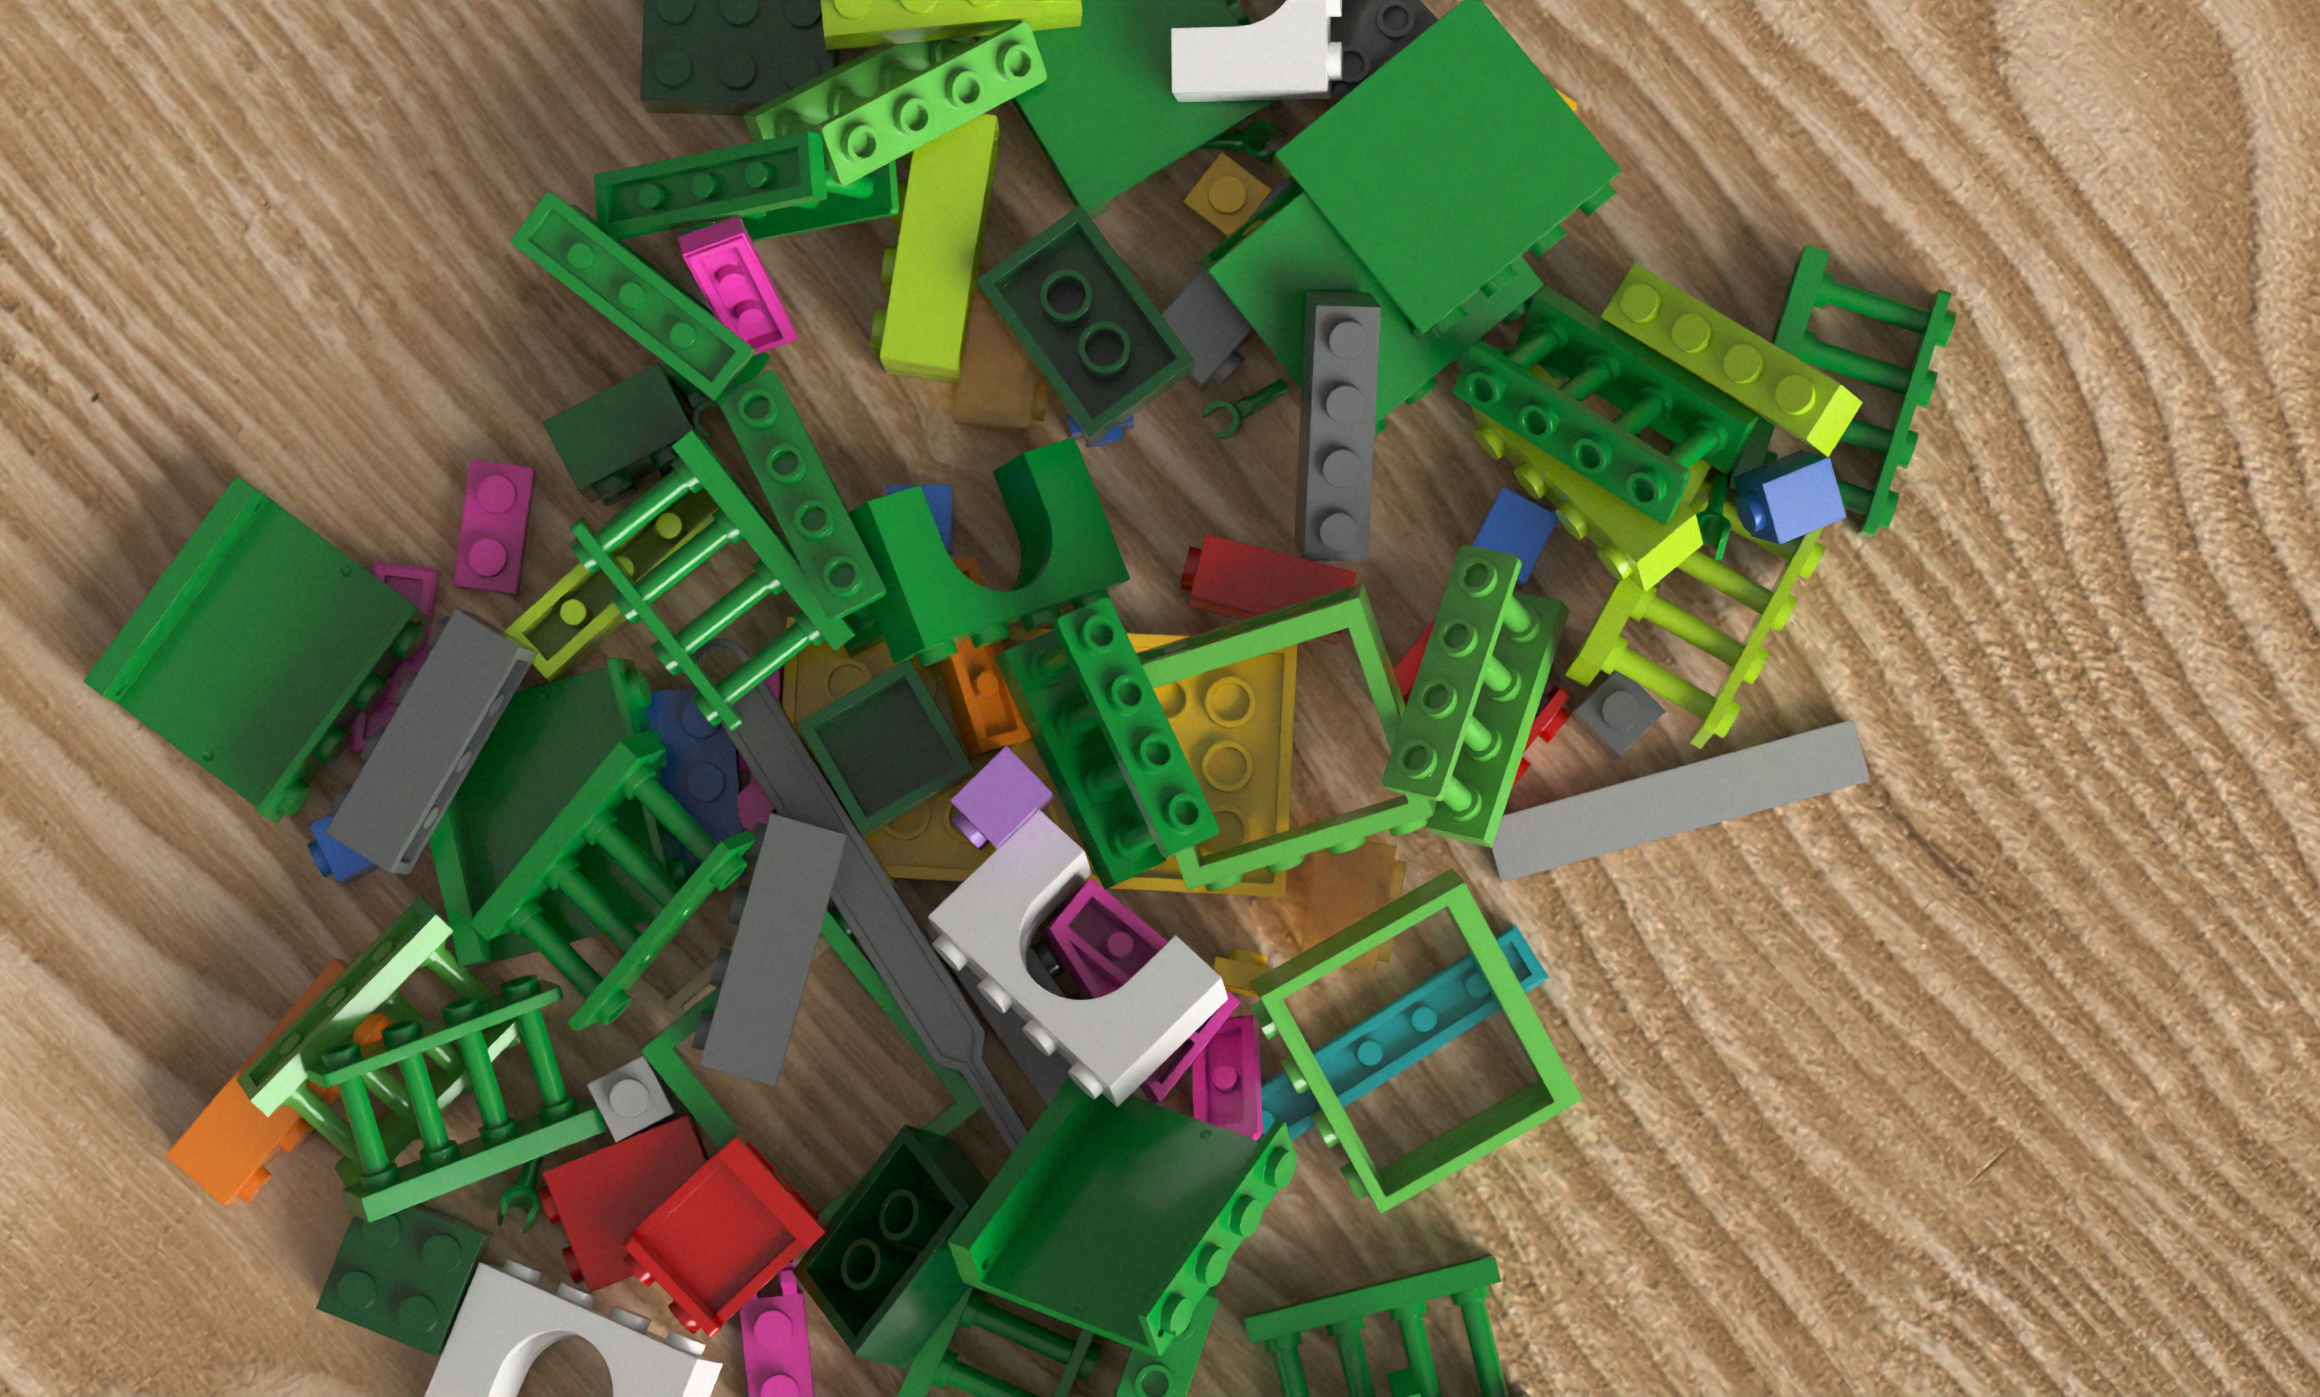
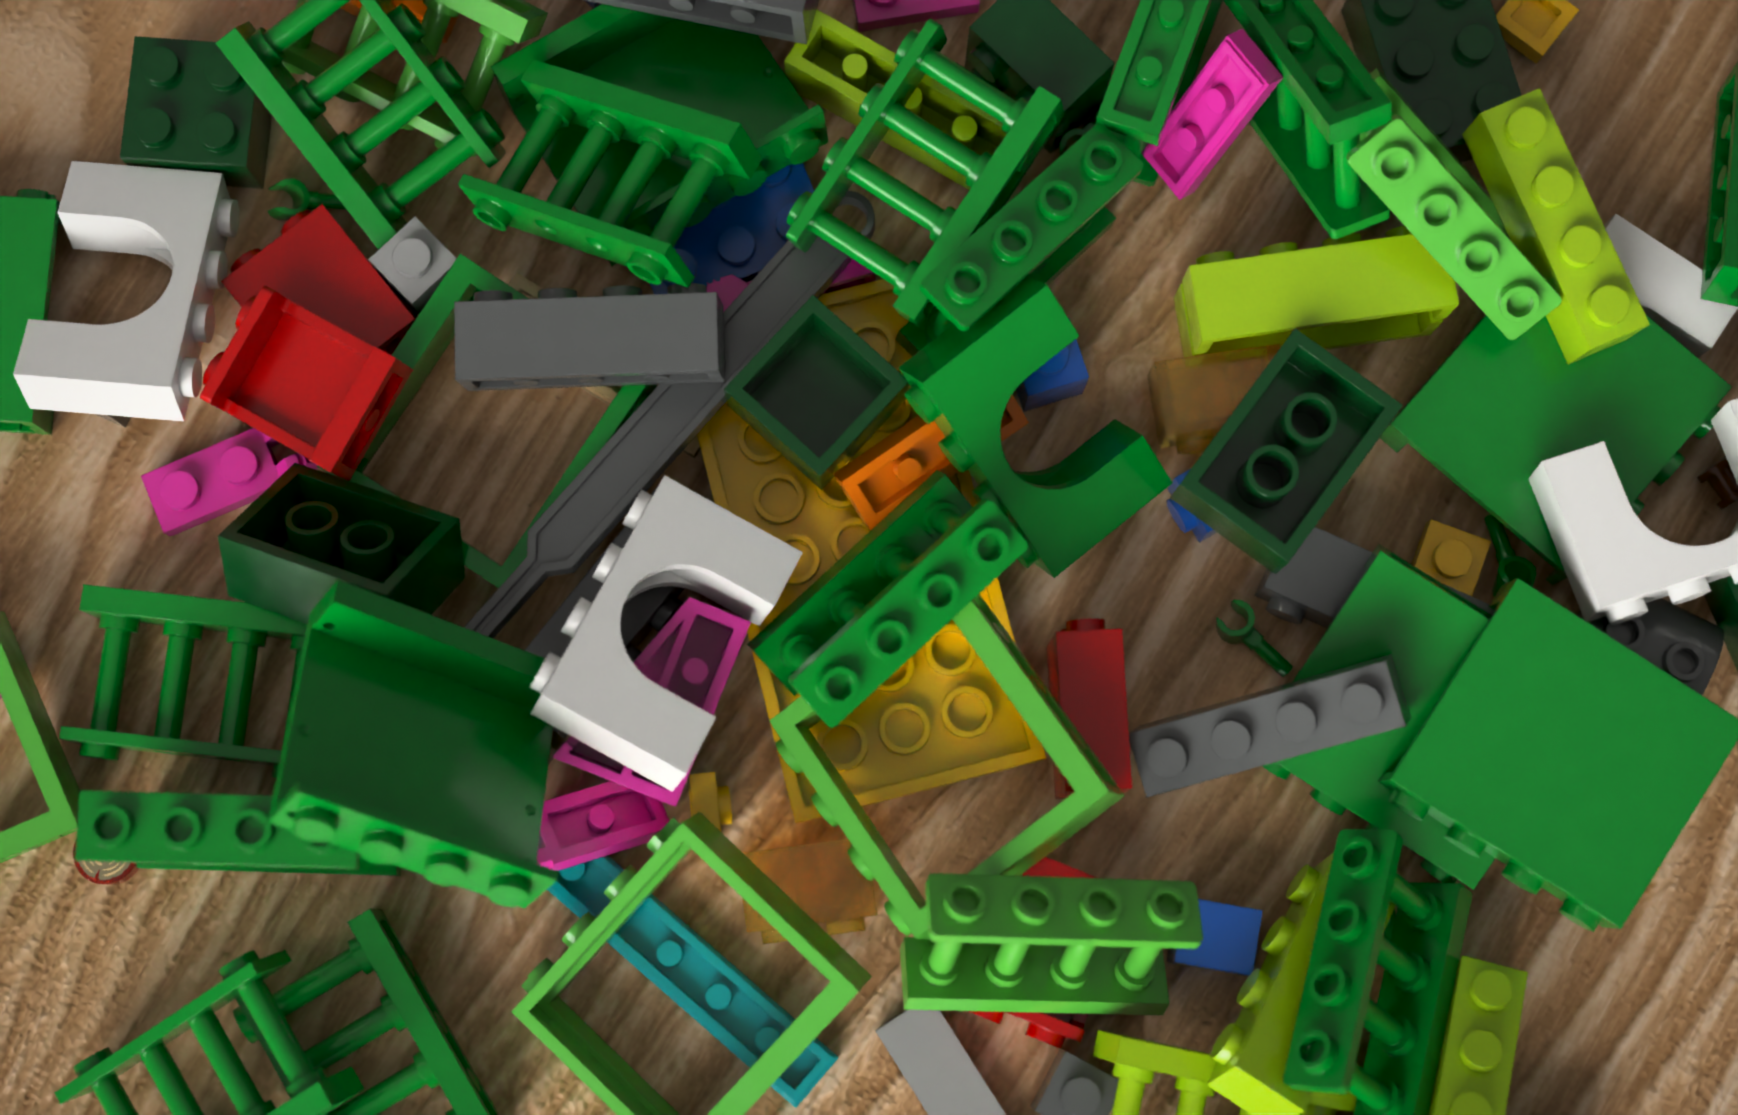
camera: 70 degrees right, 5 degrees down
(999, 800) = (800, 511): medium lavender brick -> none

